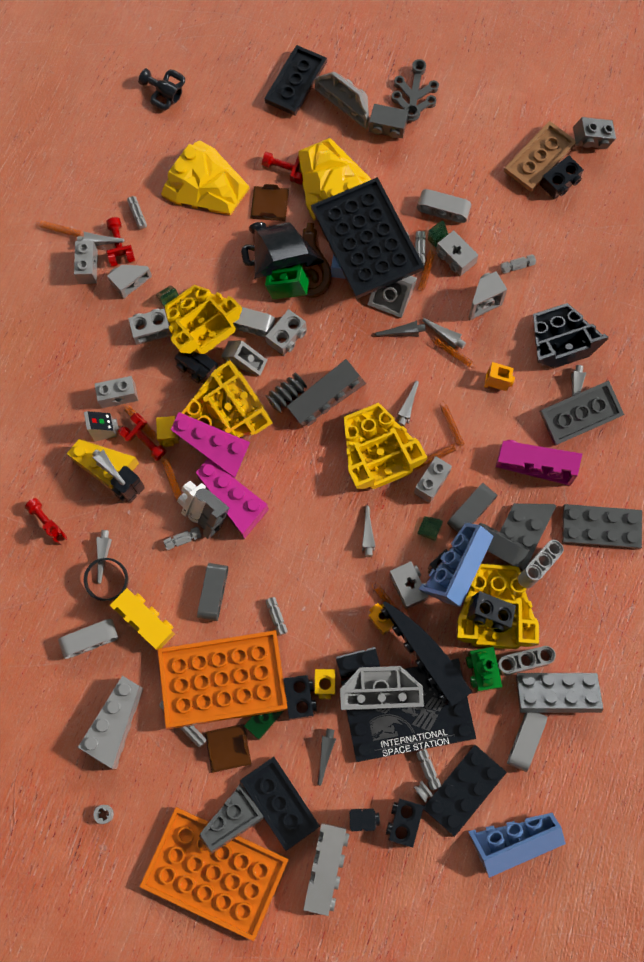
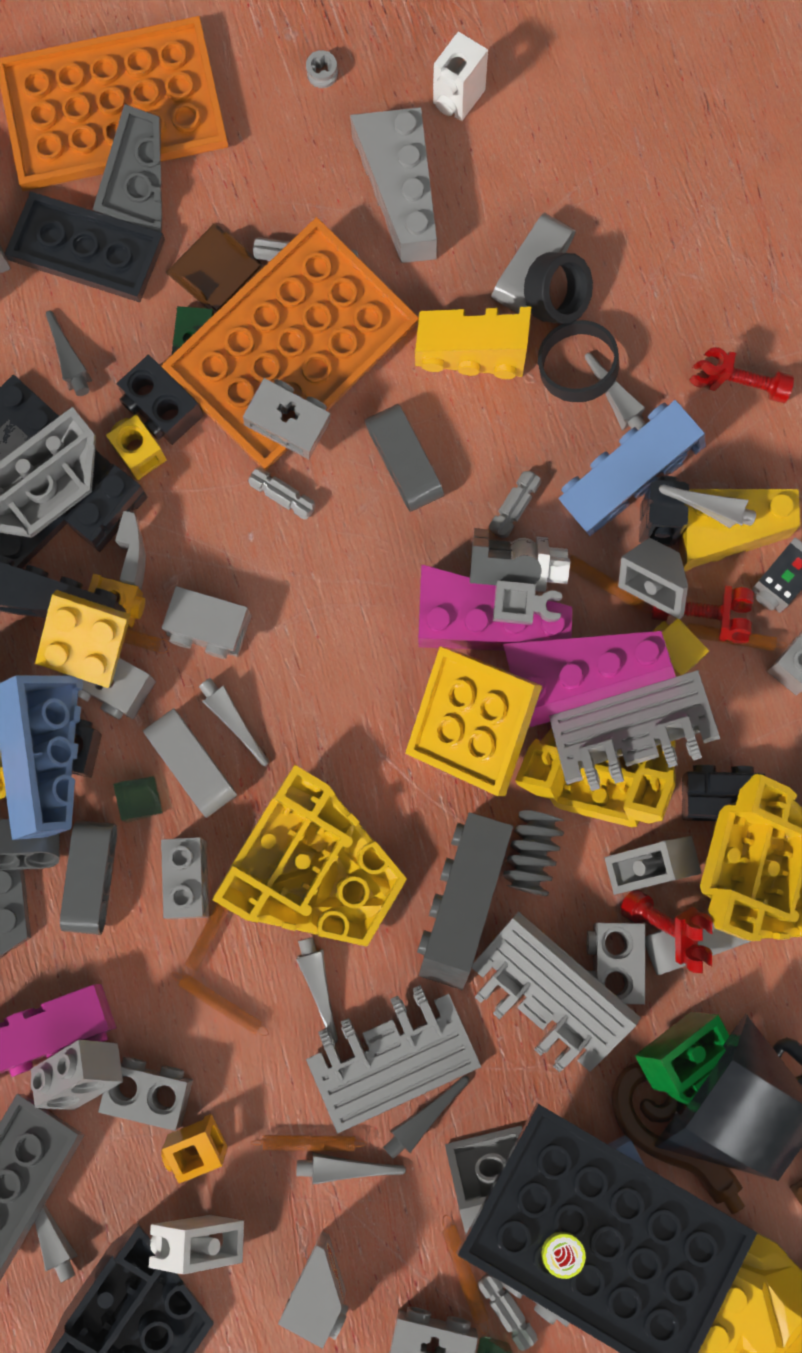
camera: 145 degrees right, 5 degrees up
(48, 751) = (459, 82): none -> white brick
(78, 615) = (578, 287): none -> black tyre
(124, 512) = (632, 466): none -> medium blue wedge
(151, 460) = (655, 576): none -> light grey slope
(211, 405) = (633, 727): none -> light grey hinge
(216, 484) = (518, 603): none -> light grey plate
(249, 629) = (297, 435): none -> light grey brick
(253, 319) = (686, 928): none -> red bar
(271, 455) = (473, 720): none -> yellow plate
(319, 342) = (554, 990): none -> light grey hinge
(350, 579) = (206, 623): none -> light grey brick
(356, 640) = (130, 539): none -> light grey slope
(385, 241) = (563, 1255): none -> tile
(398, 526) = (190, 763): none -> light grey beam
(399, 356) = (395, 1064): none -> light grey hinge
(407, 599) = (82, 638): none -> yellow plate
(509, 407) = (145, 1105): none -> light grey brick
(520, 340) = (186, 1246): none -> white brick
(527, 430) = (76, 1075): none -> light grey brick

